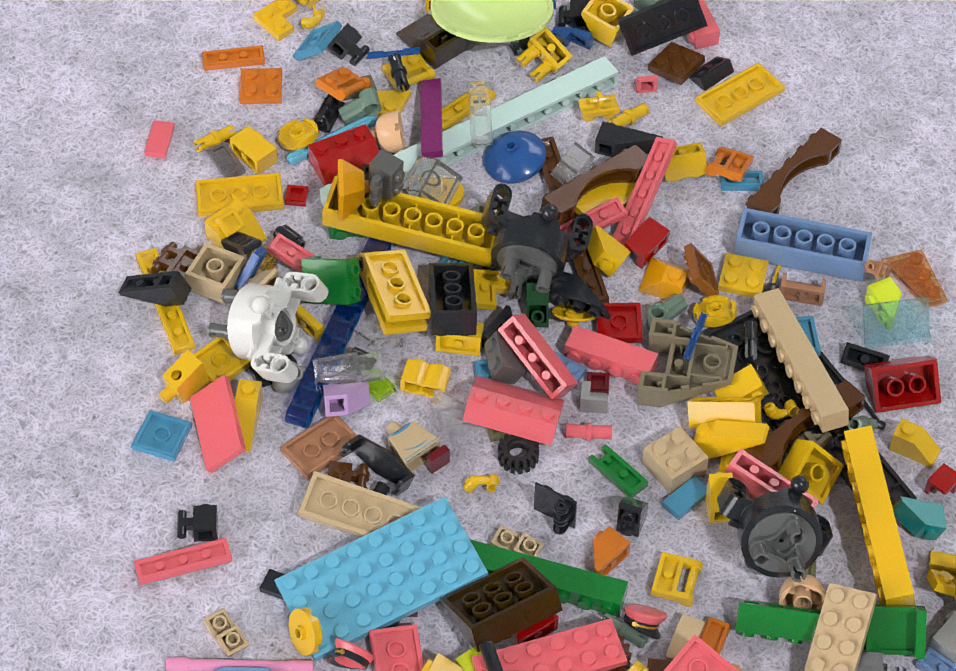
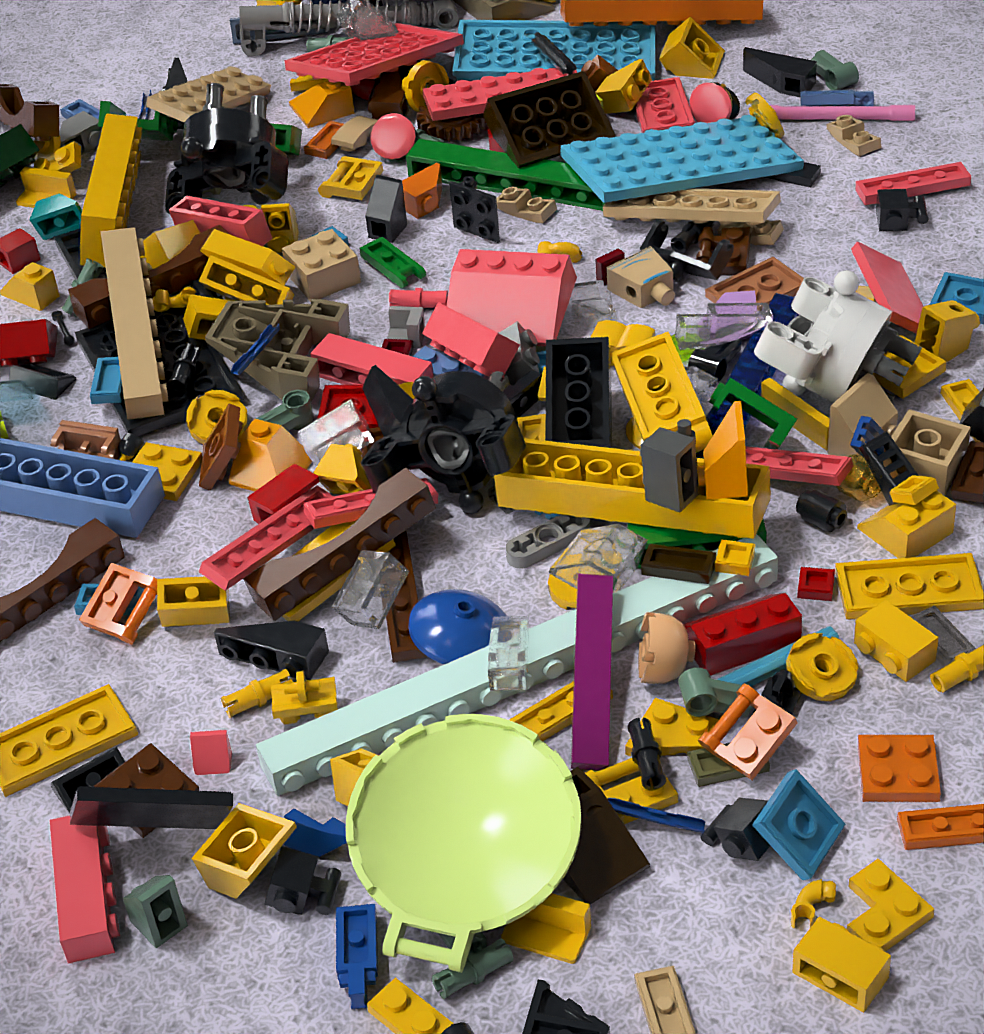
camera: 170 degrees left, 10 degrees down
(621, 283) = (338, 427): none -> clear brick

